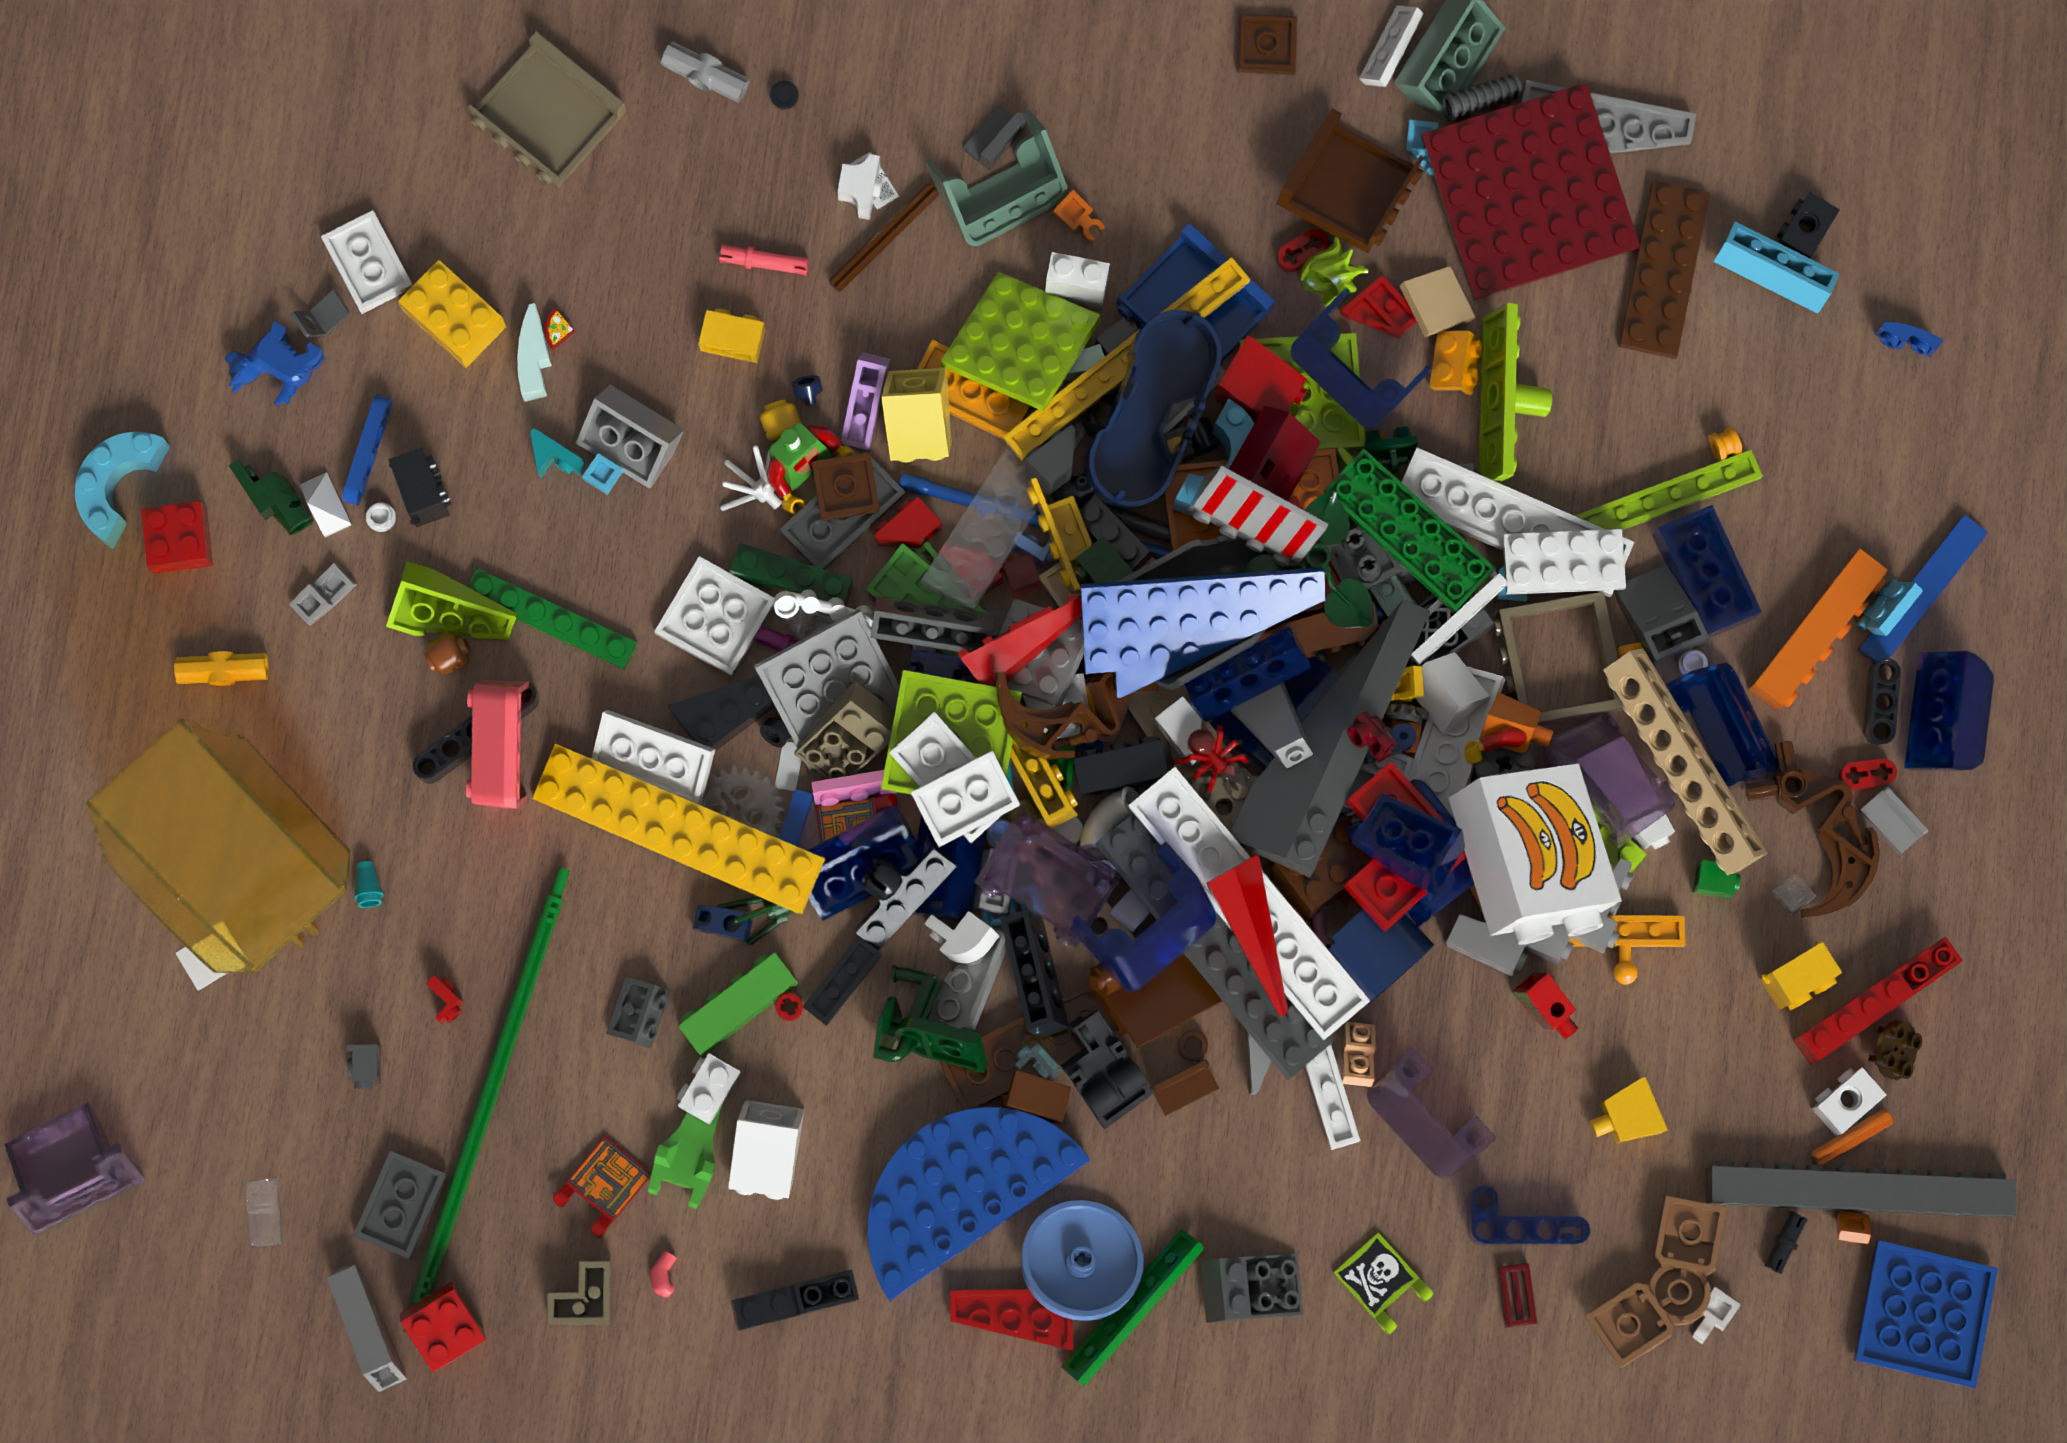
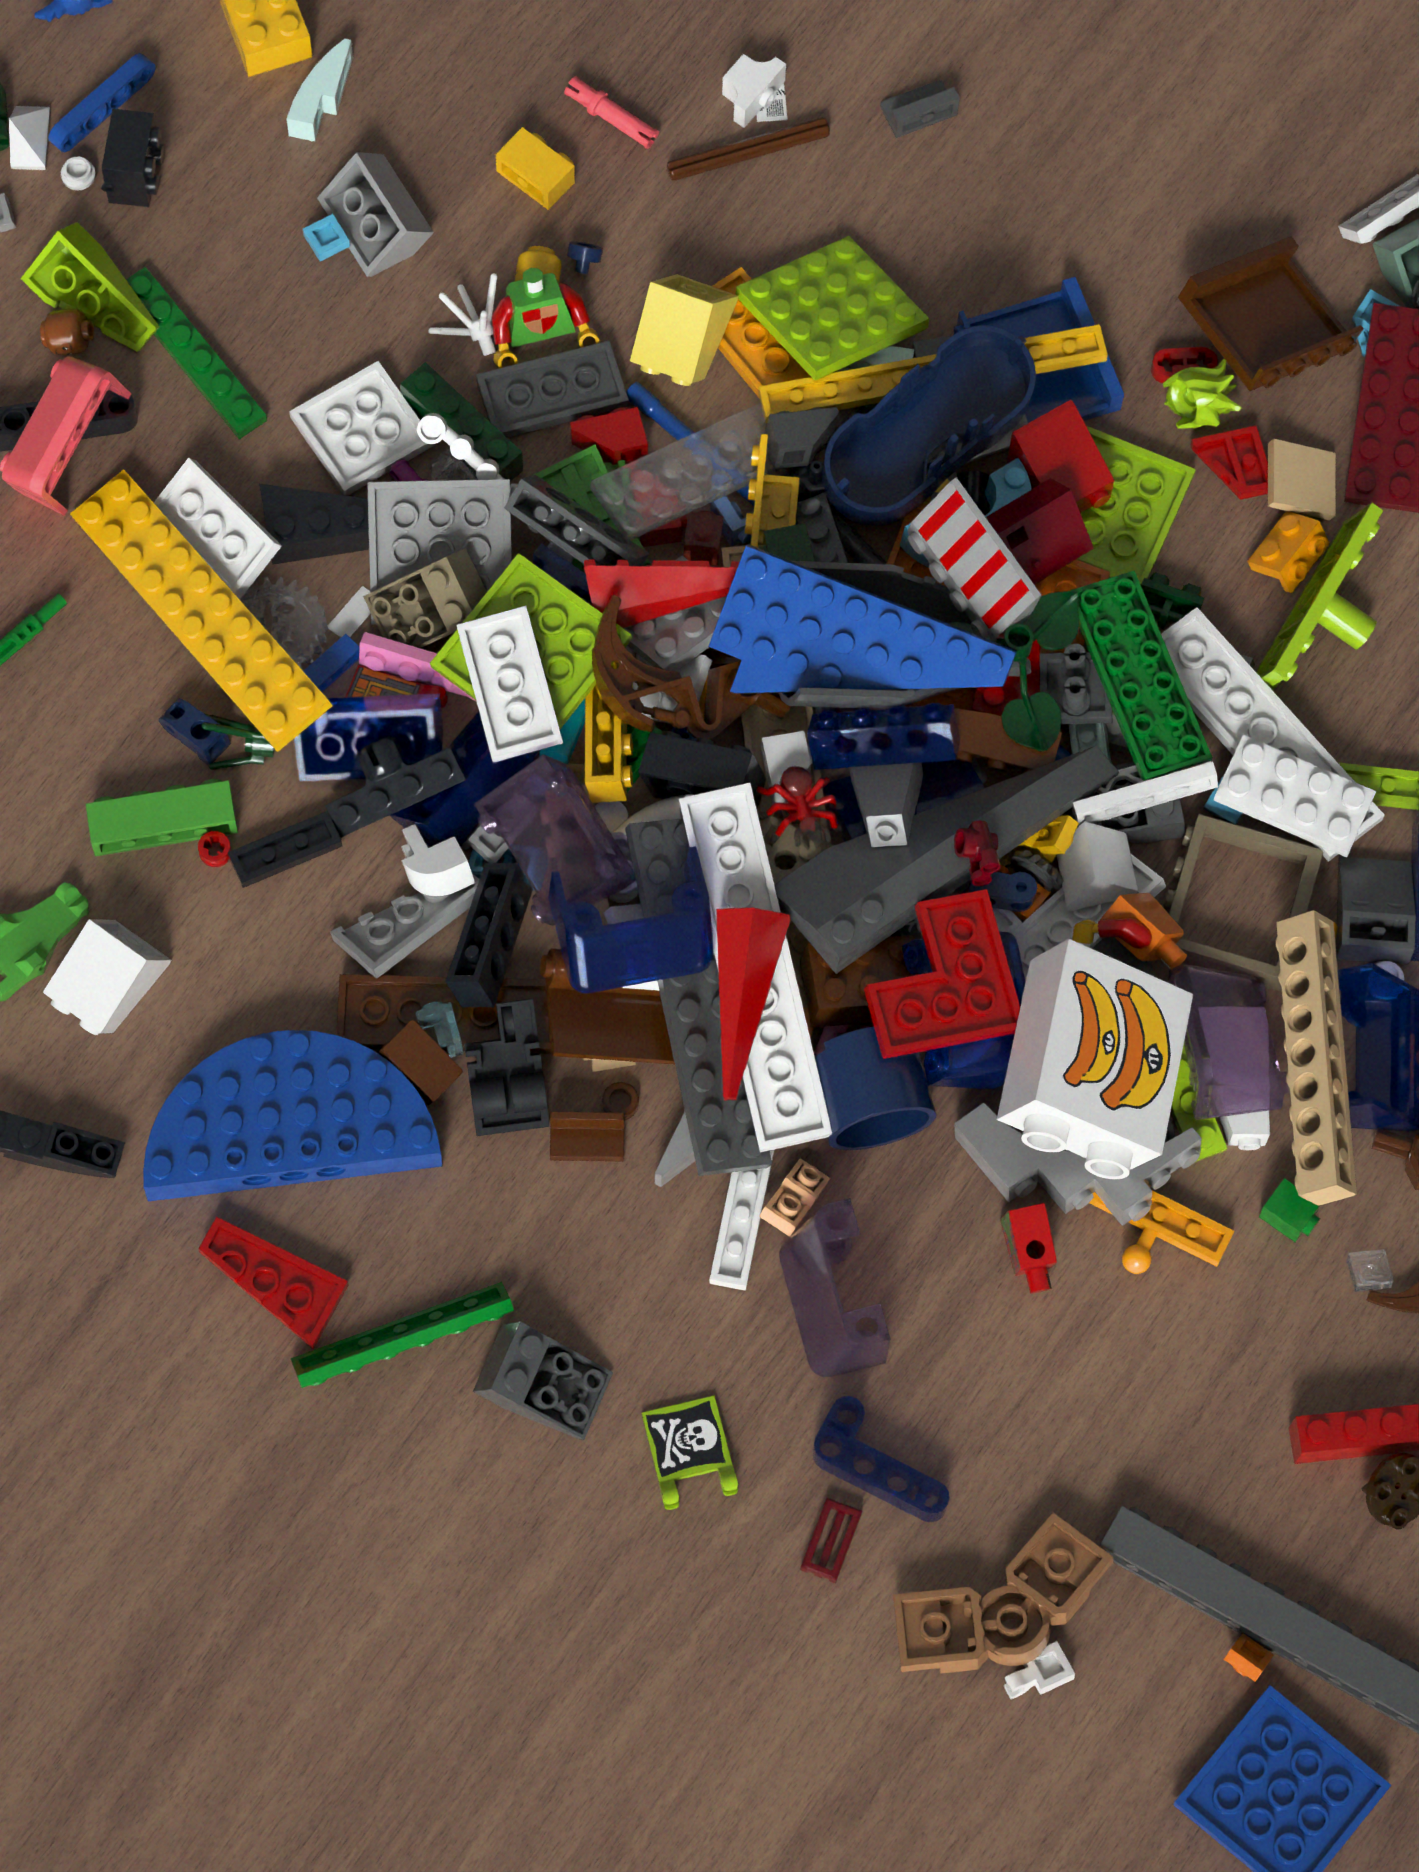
camera: 30 degrees right, 10 degrees down
(548, 450) = (283, 191): teal slope -> none
(557, 329) = (361, 81): tile -> none
(638, 1012) = (55, 775): dark grey bracket -> none
(708, 1088) = (81, 883): white bracket -> none
(775, 732) = (356, 569): black tile -> none
(845, 486) = (567, 362): reddish brown plate -> none
(865, 400) = (626, 303): lavender slope -> none
(924, 1037) = (336, 933): dark green plate -> none
(965, 799) = (509, 706): white plate -> none
(1009, 196) = (899, 170): sand green windscreen -> none
(1074, 212) = (962, 217): orange plate -> none
(1078, 280) = (925, 274): white brick -> none
(1082, 1260) = (374, 1254): medium blue dish -> none
(1267, 44) = (1258, 150): reddish brown tile -> none
(1314, 356) = (1137, 458): clear blue windscreen -> none
(1410, 842) = (960, 978): clear blue slope -> none
(1630, 1114) = (1060, 1409): yellow torso -> none
(1786, 1242) = (1163, 1636): black pin -> none
(1808, 972) = (1330, 1355): yellow brick -> none
(1852, 1137) = (1300, 1562): orange axle -> none
(1865, 1096) = (1298, 1533): white brick -> none

